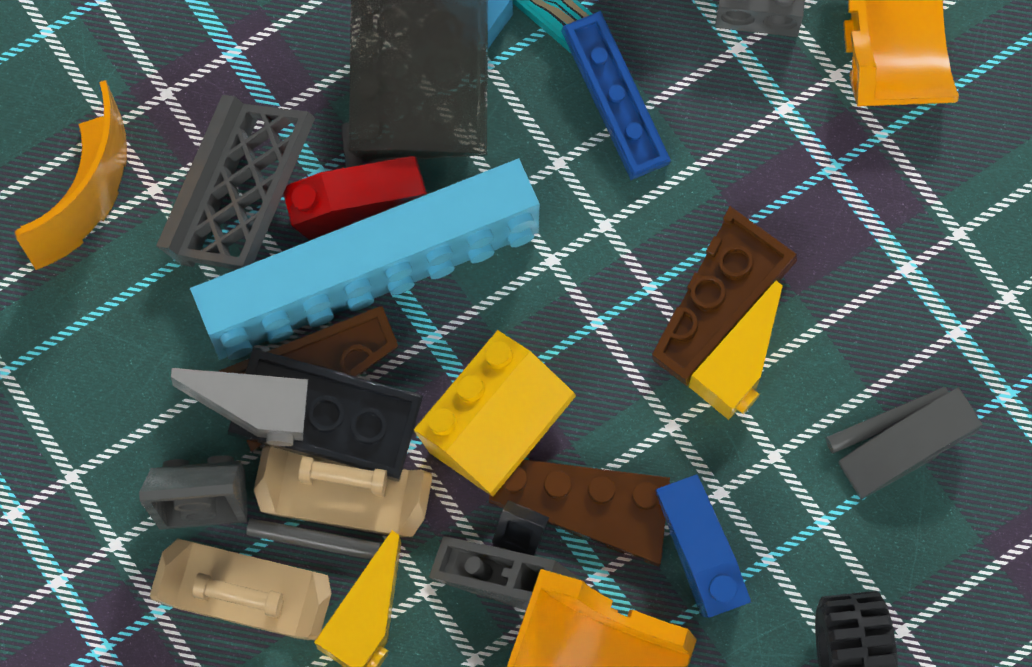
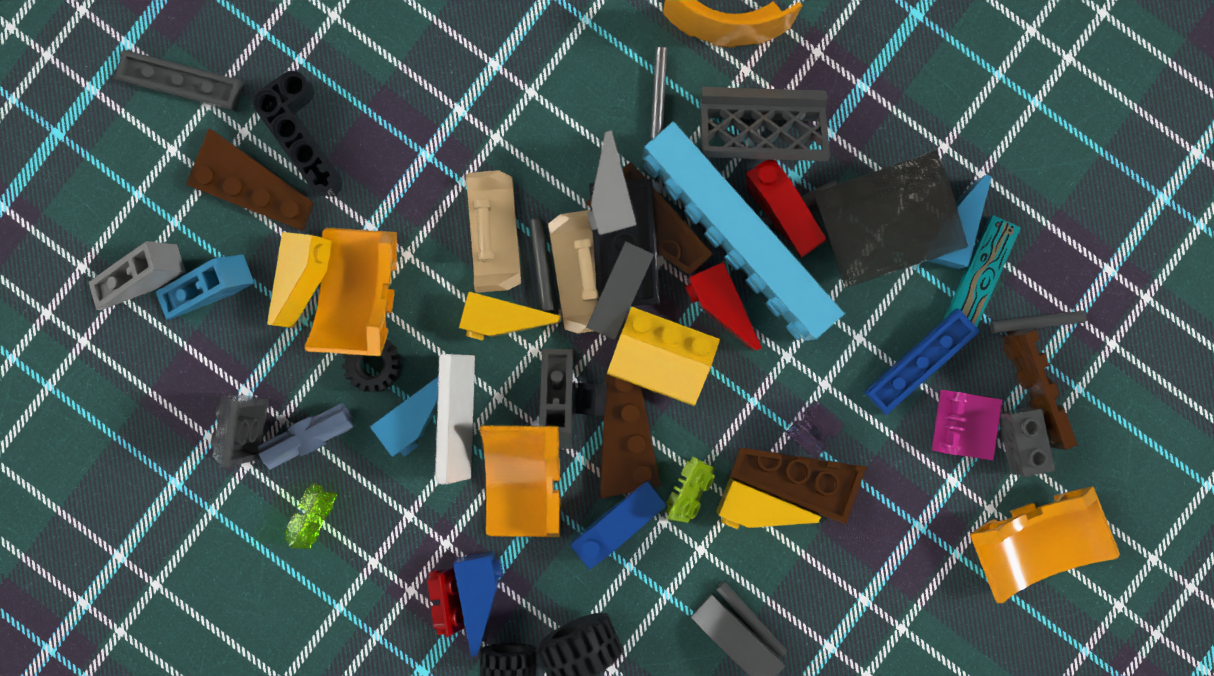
camera: 70 degrees right, 15 degrees up
(141, 308) = (658, 91): none -> flat silver bar
(196, 493) = (542, 176): dark grey slope -> none
(387, 439) = (620, 290): none -> dark grey tile
(447, 317) = (719, 299): none -> red slope
(652, 239) = (822, 421): none -> clear purple wheel
(676, 420) = (686, 504): none -> lime hinge
(716, 67) = (966, 425): none -> dark pink hinge

